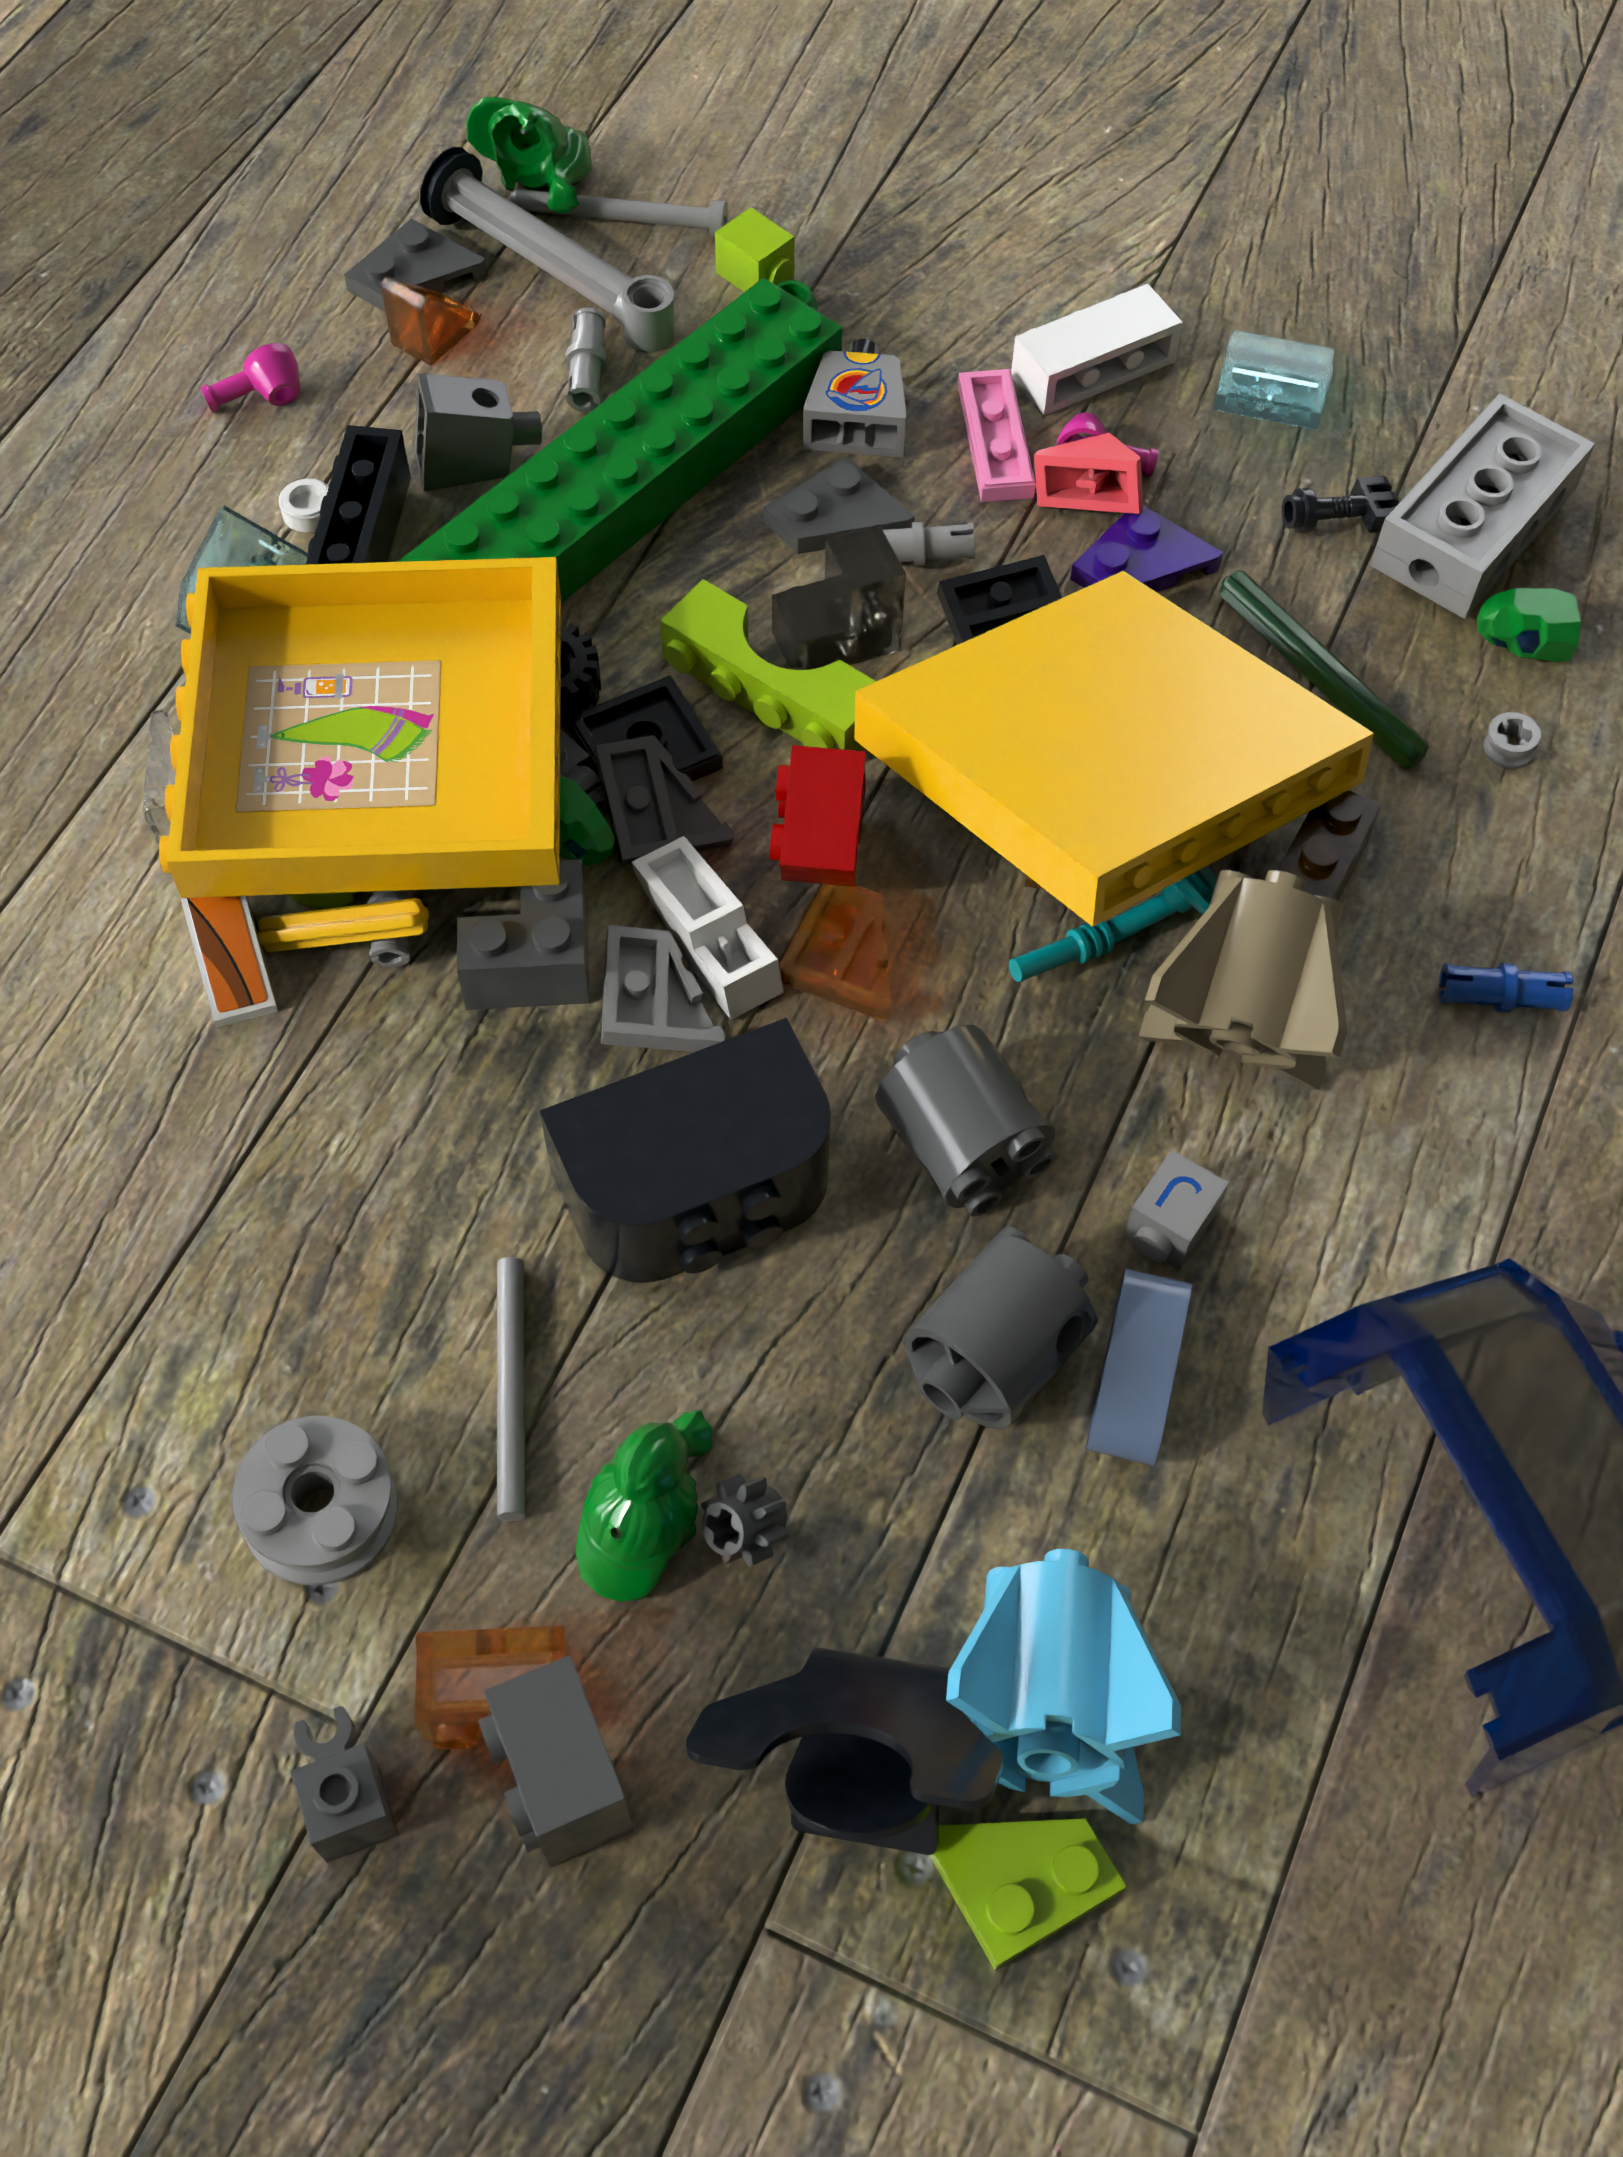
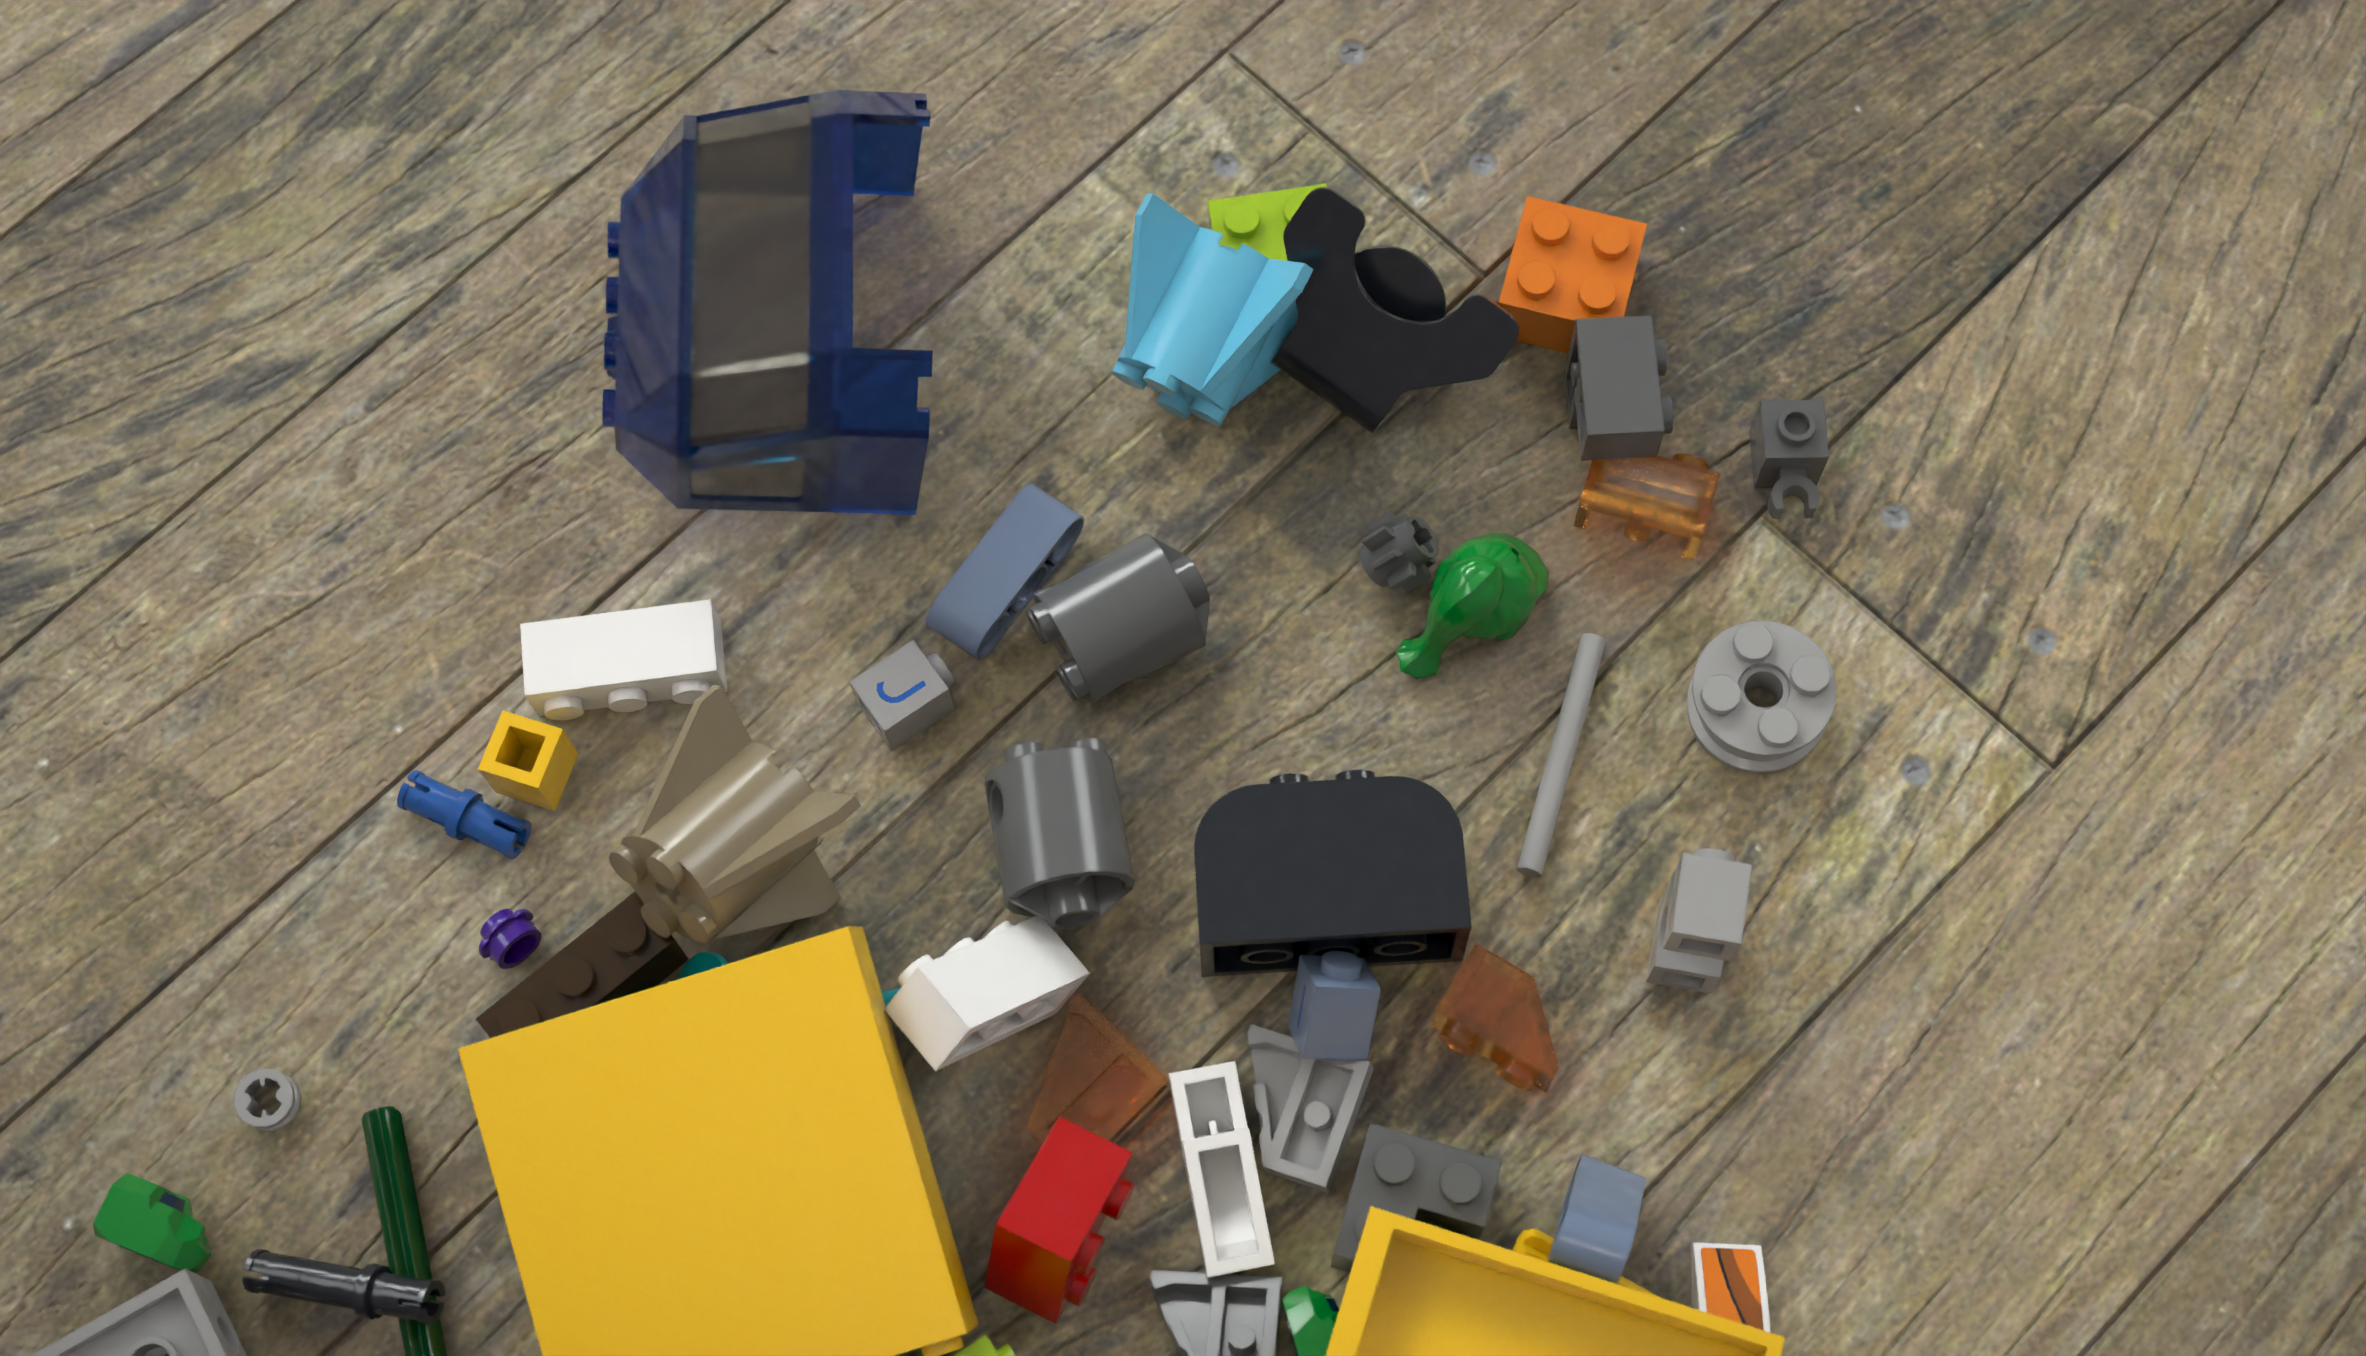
camera: 155 degrees left, 10 degrees up
(322, 1205) = (1699, 920): none -> light grey arch
(358, 947) = (1598, 1219): none -> sand blue beam
(497, 1111) = (1500, 1015): none -> clear orange slope
(645, 1042) = (1333, 1006): none -> sand blue brick
(657, 1929) = (1567, 269): none -> orange brick
(964, 943) = (984, 990): none -> white brick
(1341, 627) = (368, 1290): none -> black pin
(1401, 905) = (509, 937): none -> dark purple plate
(1451, 1154) = (622, 659): none -> white brick
(1476, 1026) = (528, 760): none -> yellow brick

